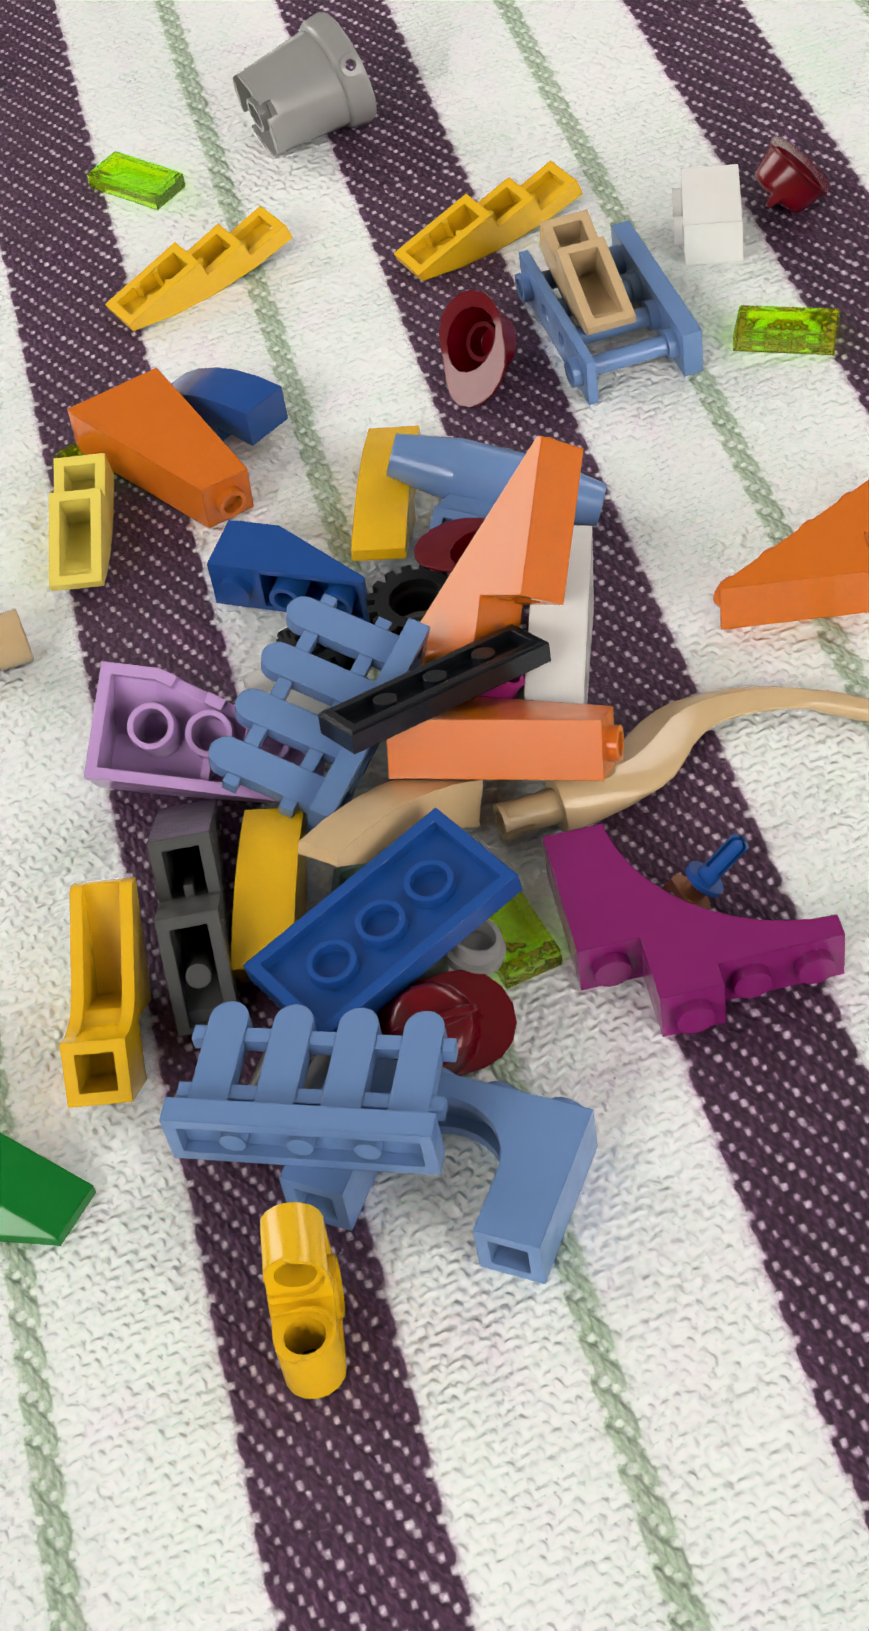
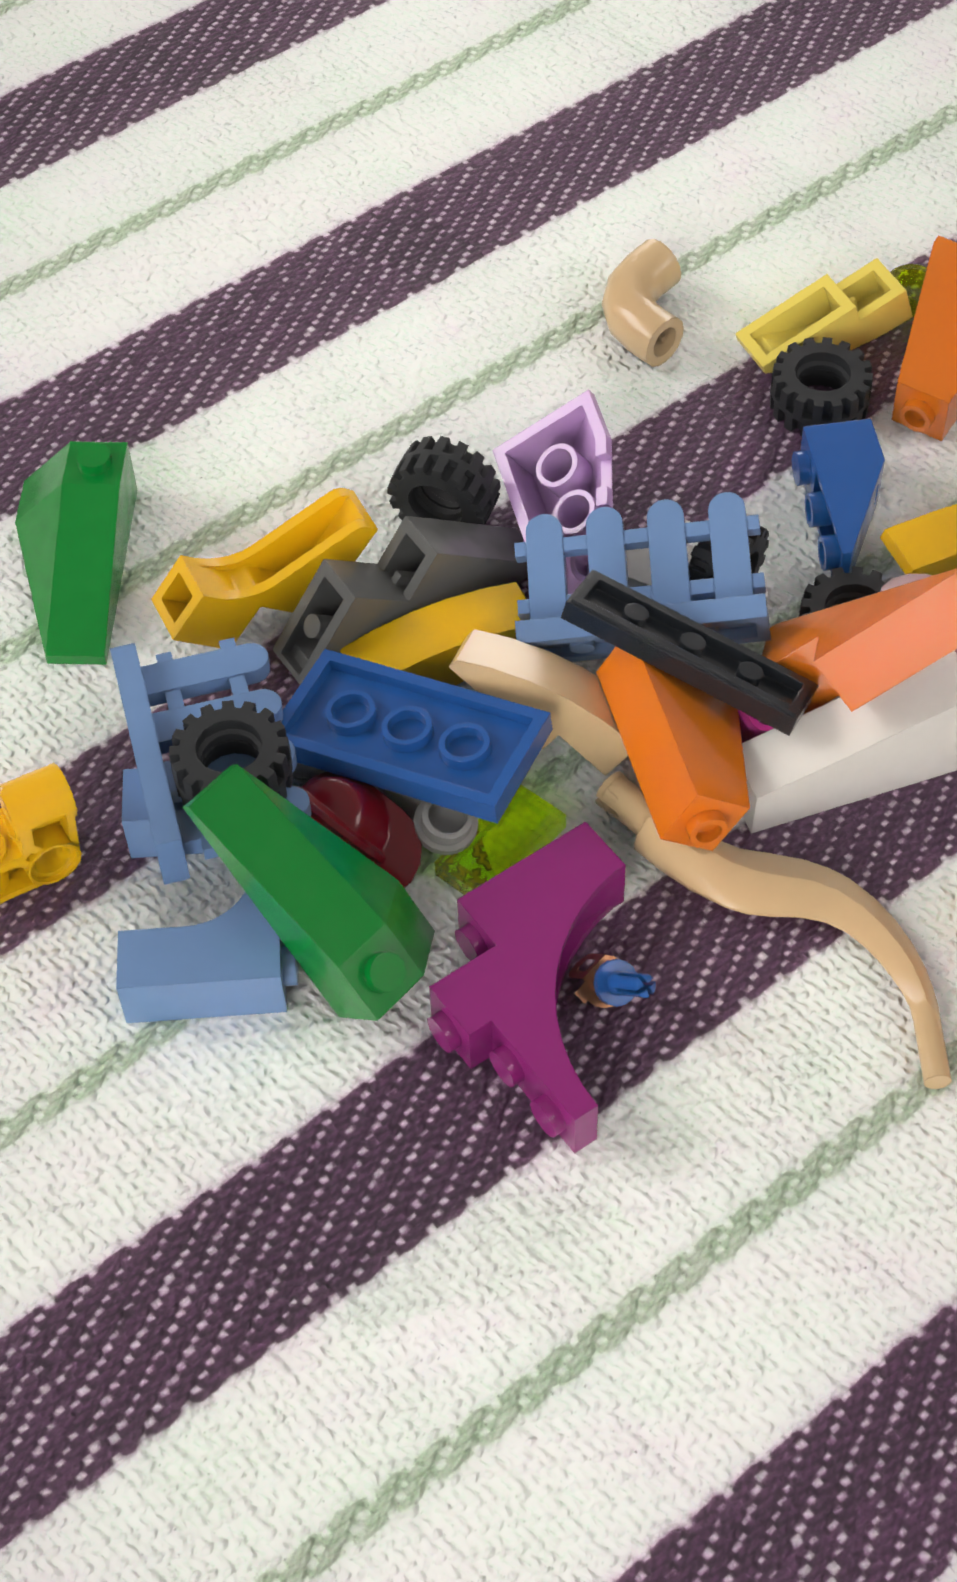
camera: 60 degrees right, 5 degrees up
(97, 830) = (443, 483): none -> black tyre
(154, 572) = (820, 365): none -> black tyre
(357, 1018) = (226, 733): none -> black tyre
(545, 1044) = (321, 896): none -> green wedge

